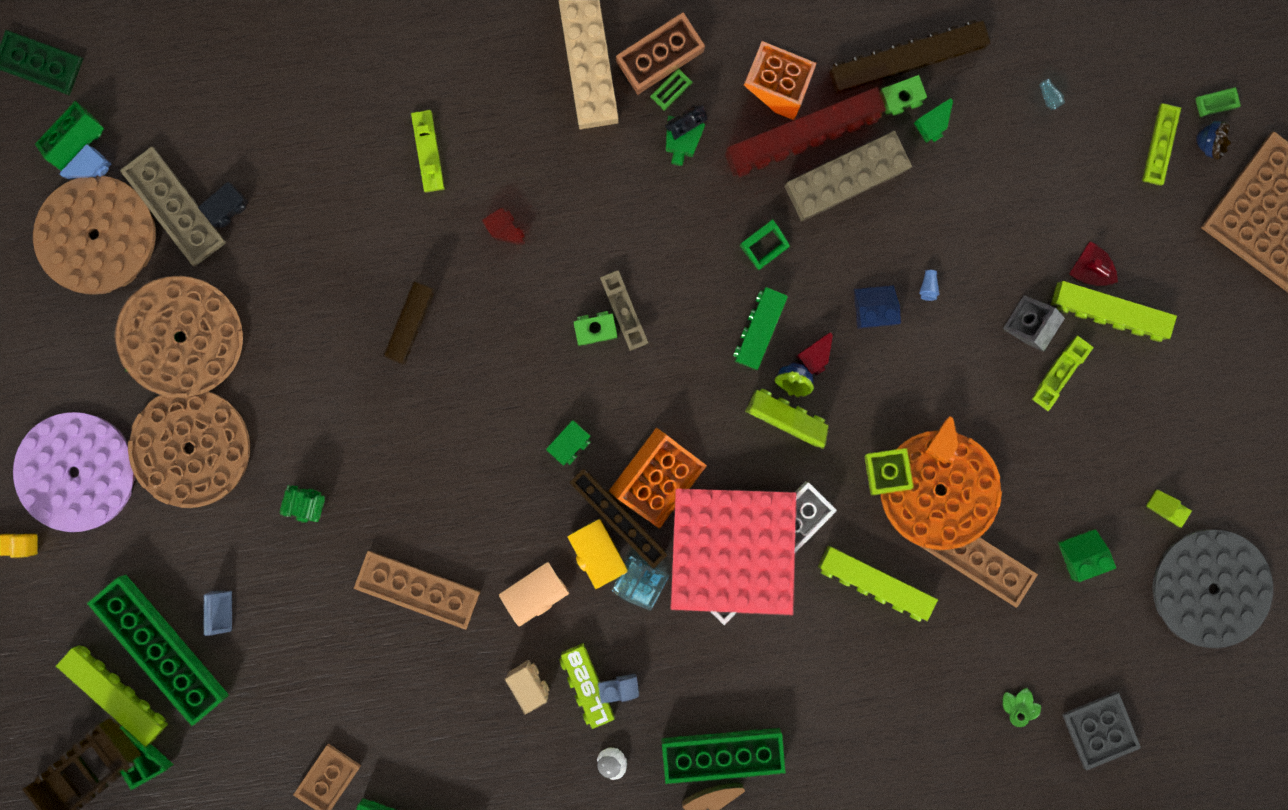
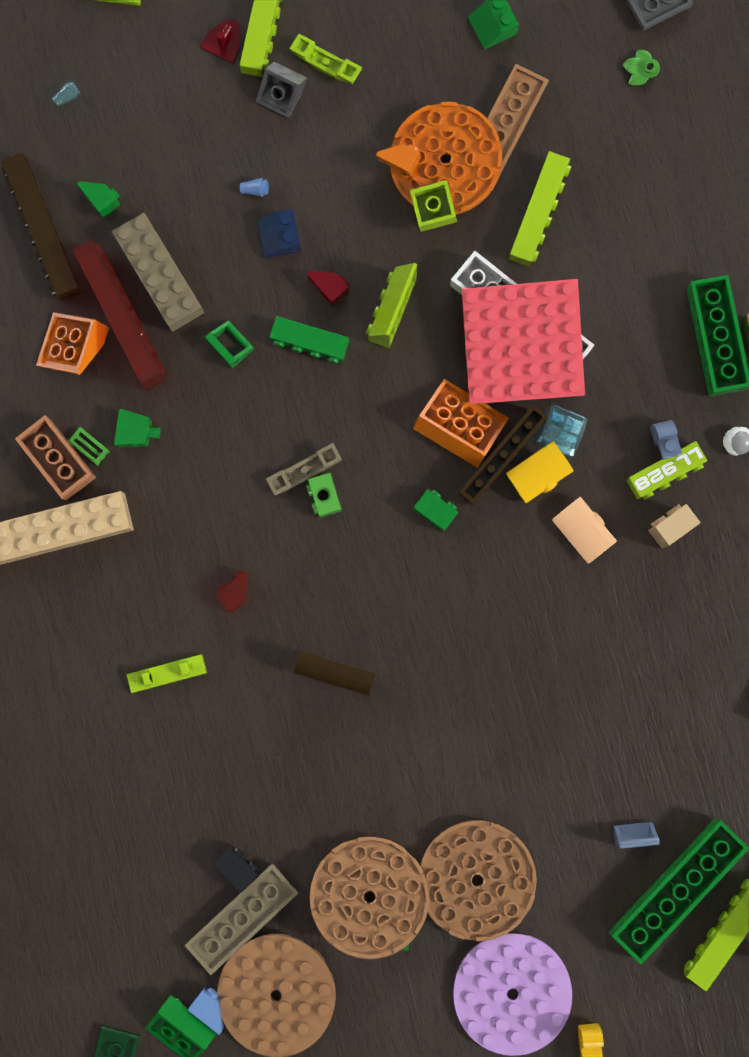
camera: 90 degrees left, 5 degrees down
(302, 503) = (520, 761): green brick -> none
(417, 590) = (592, 643): medium nougat plate -> none
(691, 118) = (113, 419): black hinge -> none
(795, 379) = (355, 302): lime hair -> none
(911, 87) = (71, 220): bright green brick -> none

